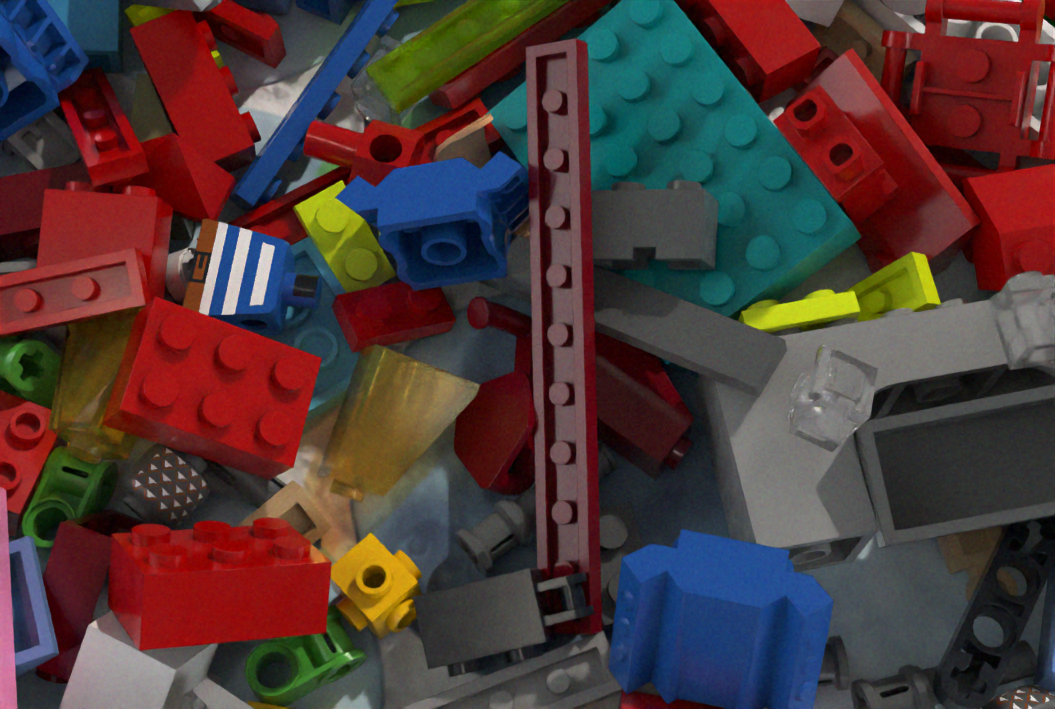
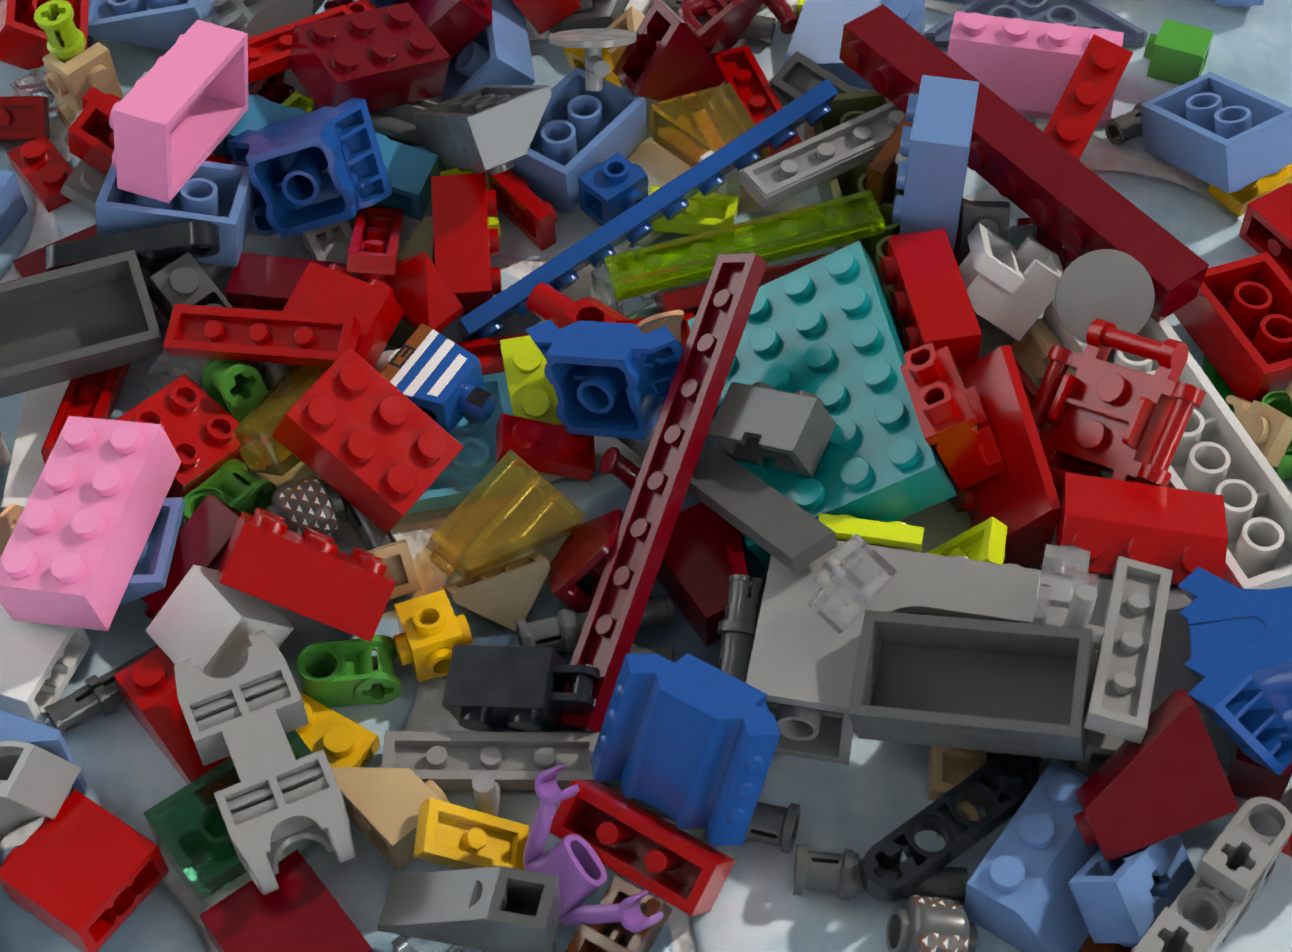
camera: 25 degrees right, 15 degrees down
(422, 500) = (504, 591): none -> dark tan slope
(702, 471) = (739, 625): none -> dark grey pin

